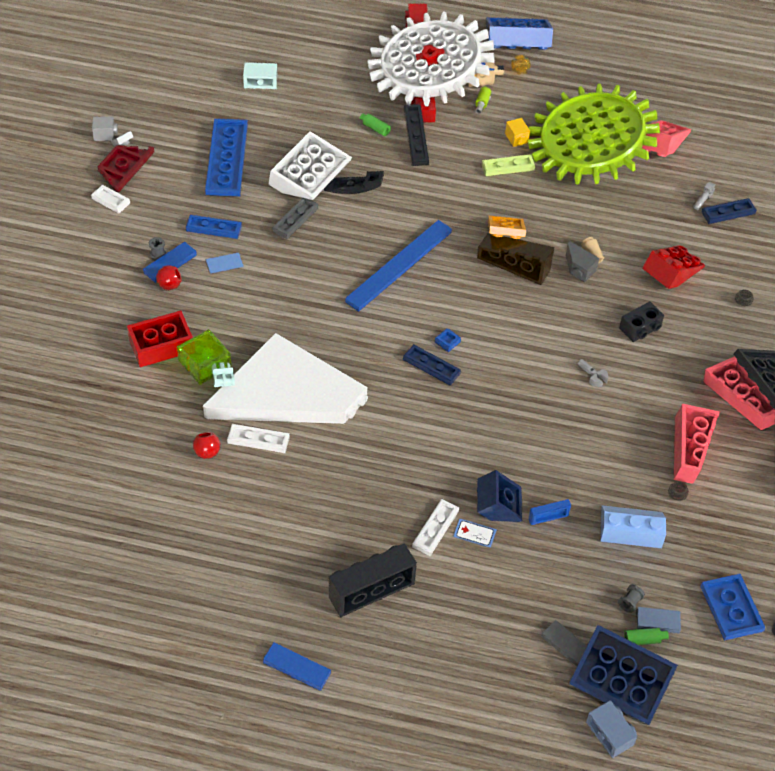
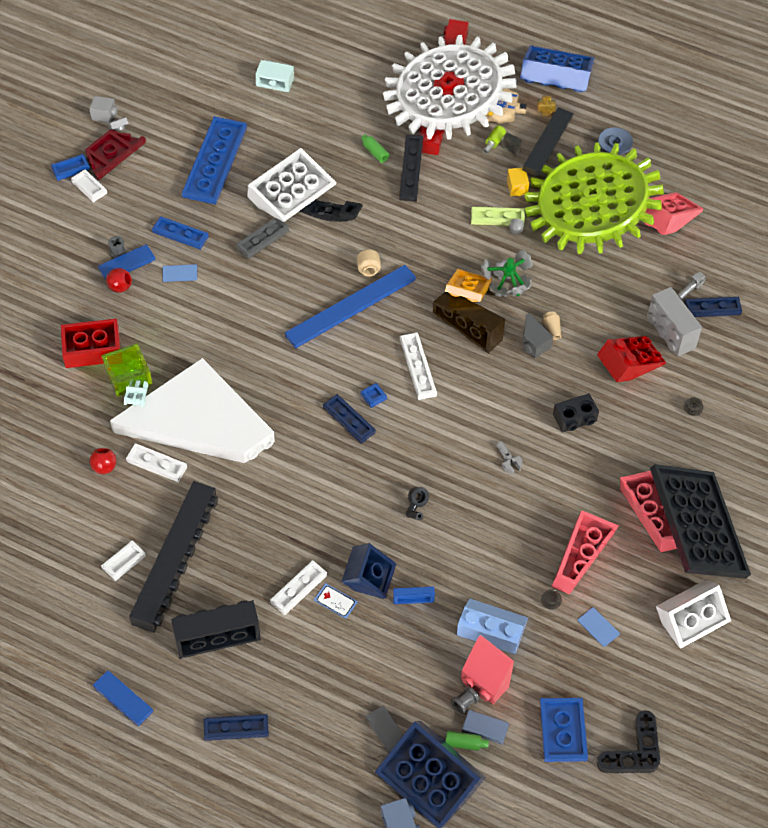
camera: 15 degrees right, 5 degrees up
(86, 185) = (70, 167): none -> blue tile
(255, 535) = (123, 560): none -> white tile
(304, 524) = (173, 557): none -> black brick
(404, 223) = (368, 262): none -> tan head
(418, 670) = (236, 727): none -> dark blue tile
(480, 307) = (418, 366): none -> white tile
(500, 101) = (511, 143): none -> clear smoke plate
(523, 422) = (422, 499): none -> black plate
(529, 170) = (516, 226): none -> light grey hinge
(533, 94) = (547, 142): none -> black tile
(533, 209) = (507, 270): none -> light grey plant
(590, 81) = (615, 135): none -> sand blue dish
(648, 563) = (487, 670): none -> coral slope
(703, 227) = (674, 321): none -> light grey brick
(729, 508) = (598, 627): none -> medium blue sticker

